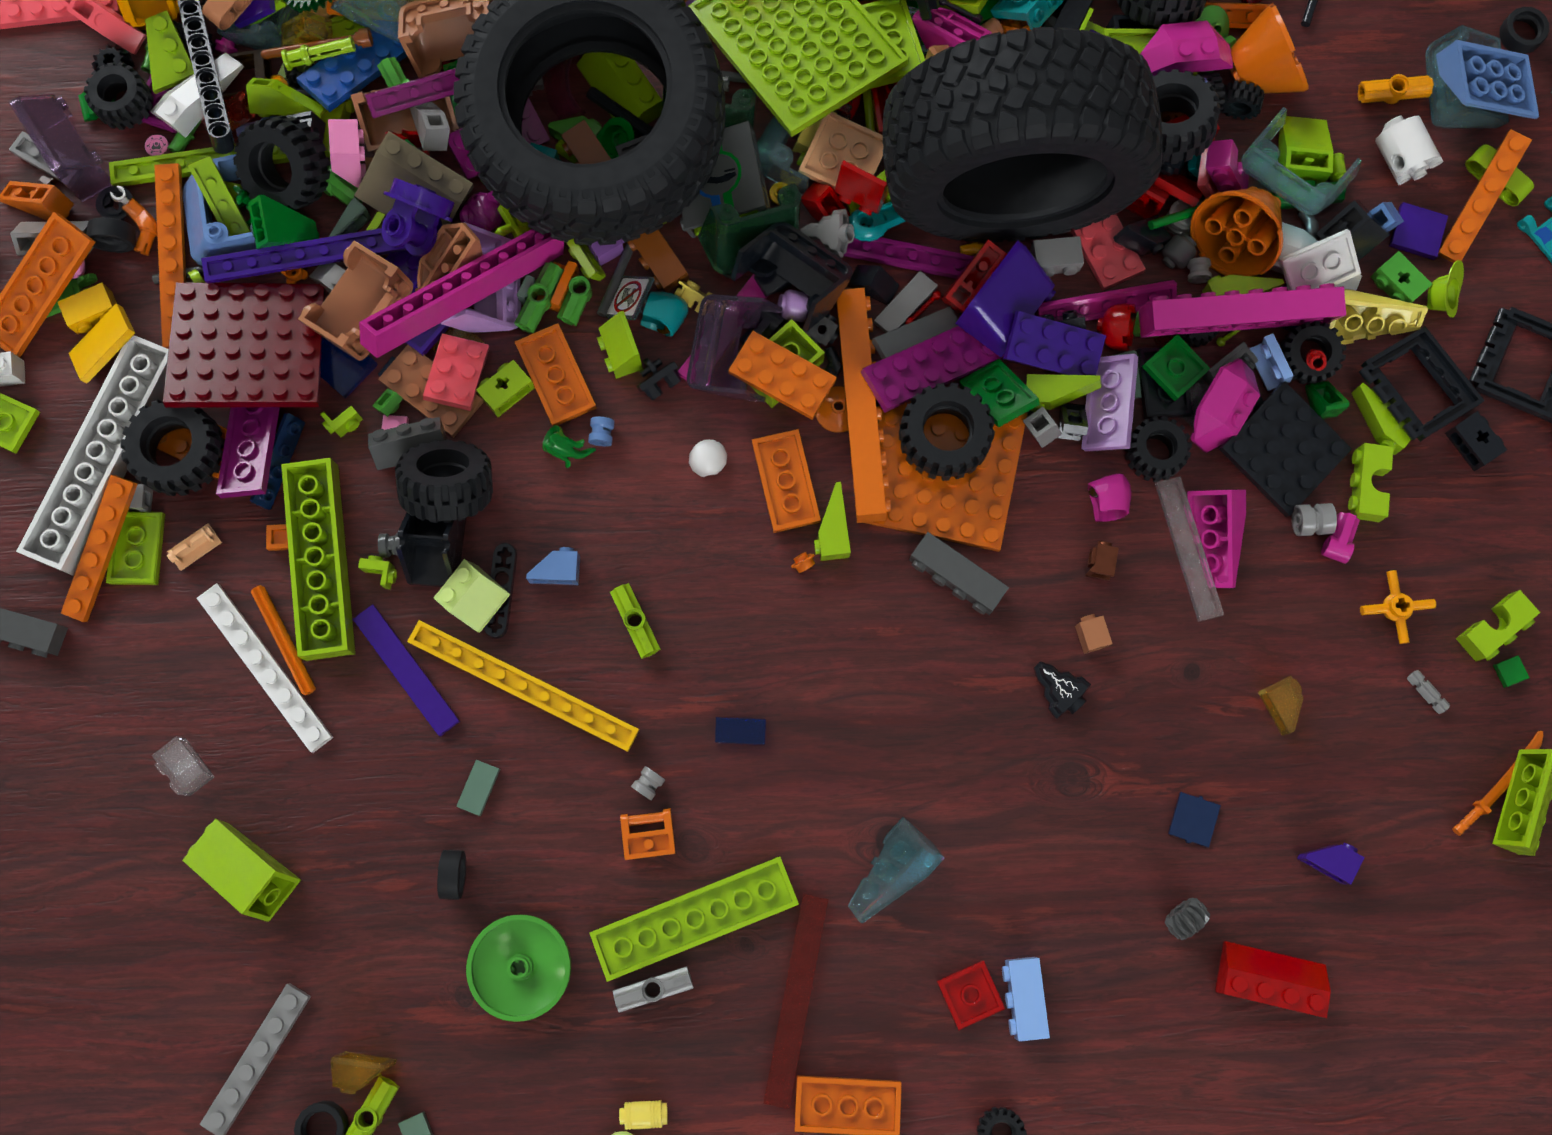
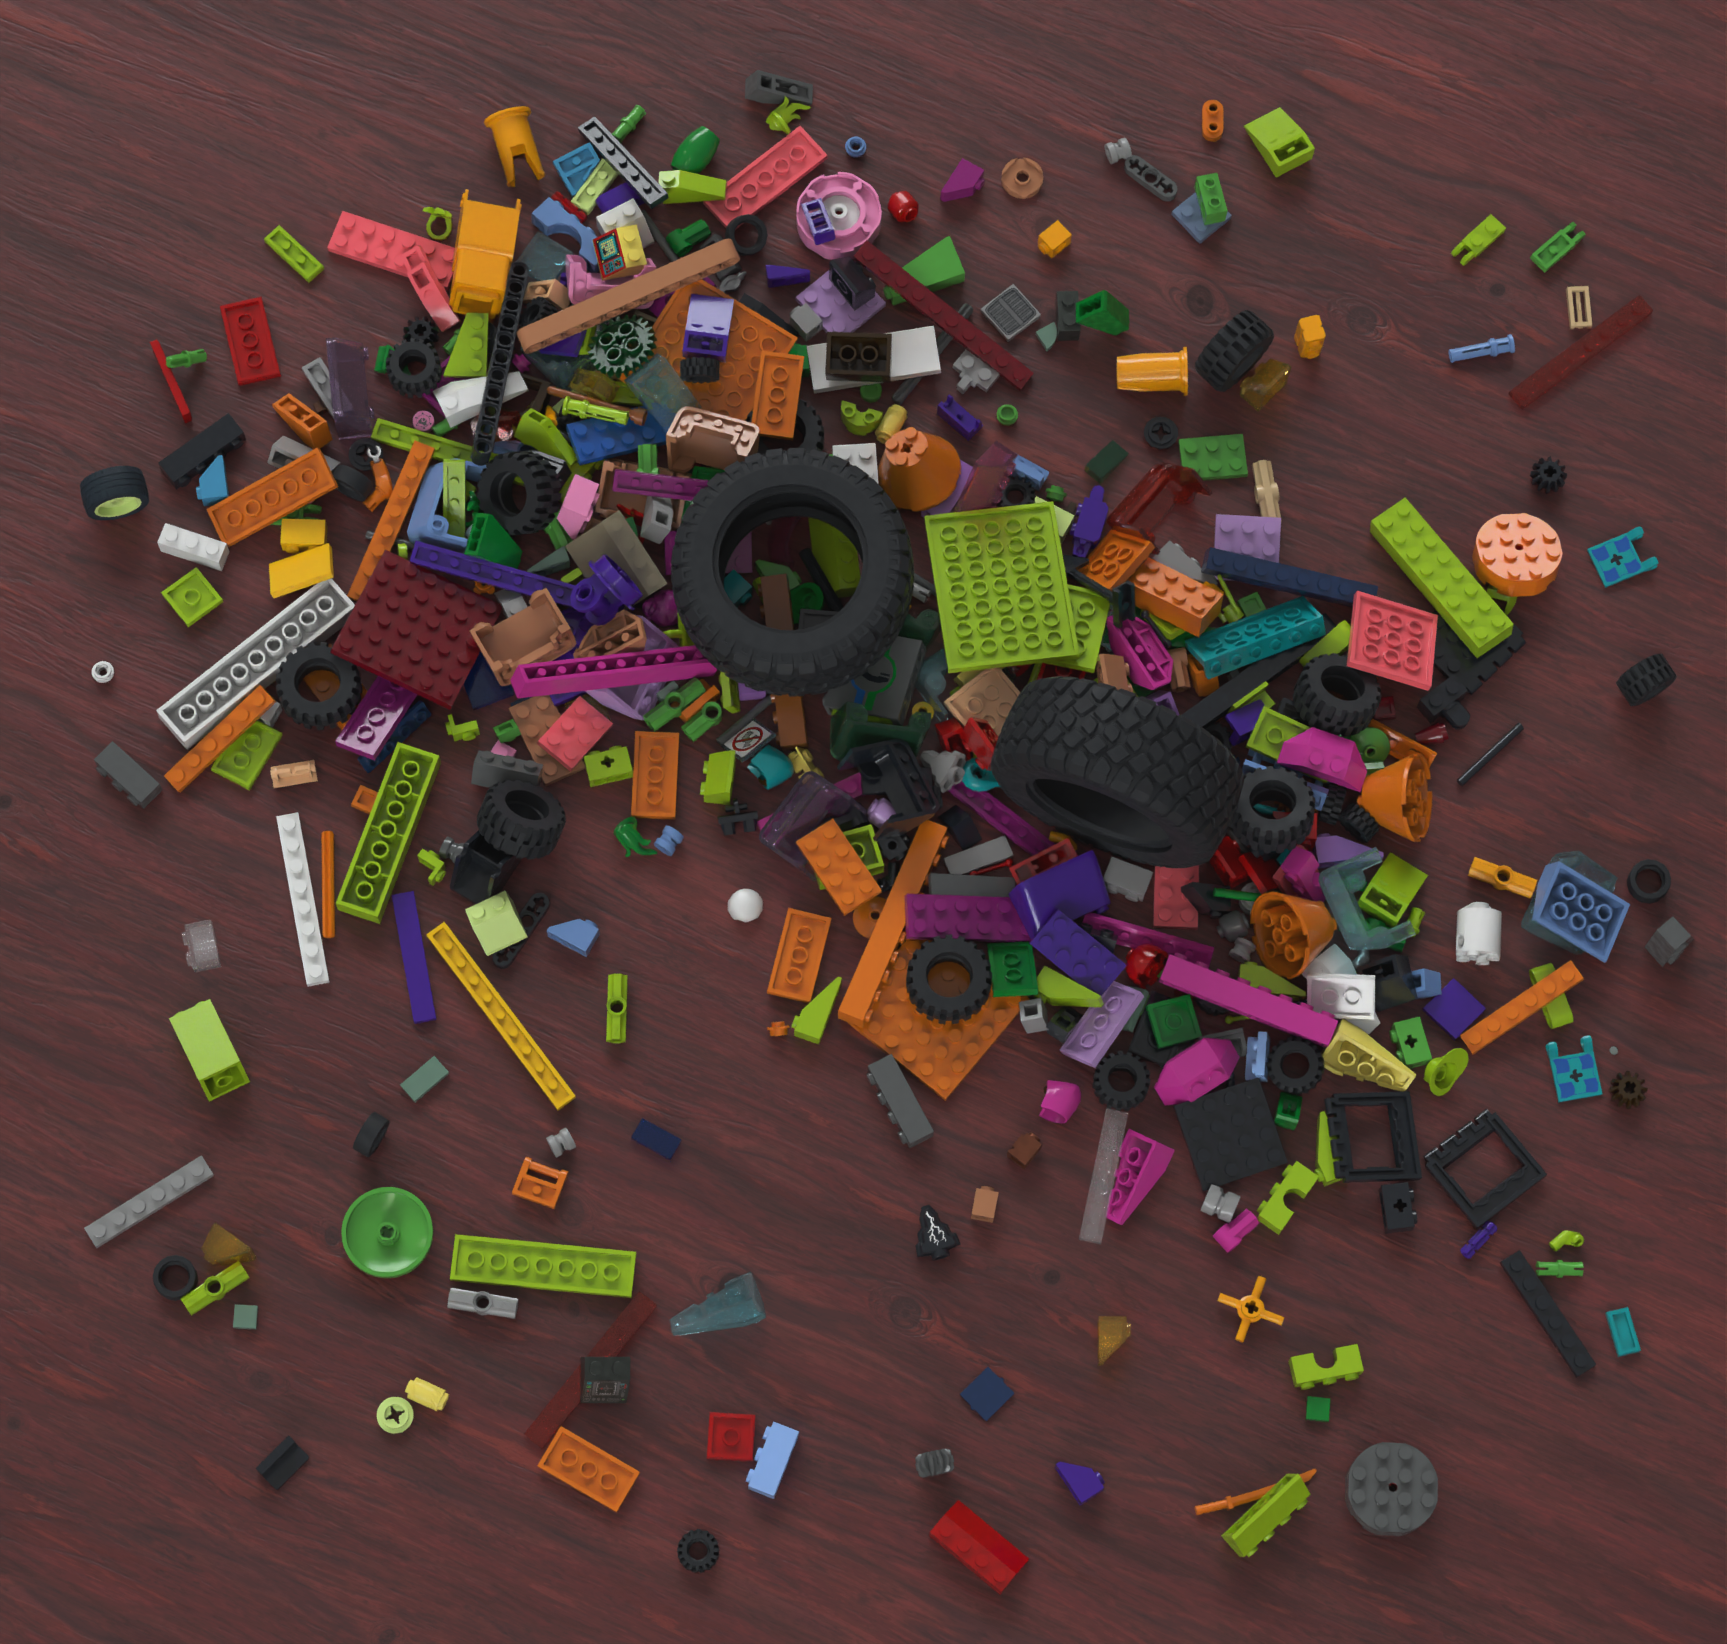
camera: 25 degrees right, 5 degrees down
(816, 1003) = (604, 1379): none -> pearl dark grey slope
(1243, 131) = (1335, 849): none -> medium lavender slope
(1317, 365) = (1288, 1071): red pin -> none
(1428, 692) = (1238, 1390): light grey axle -> none

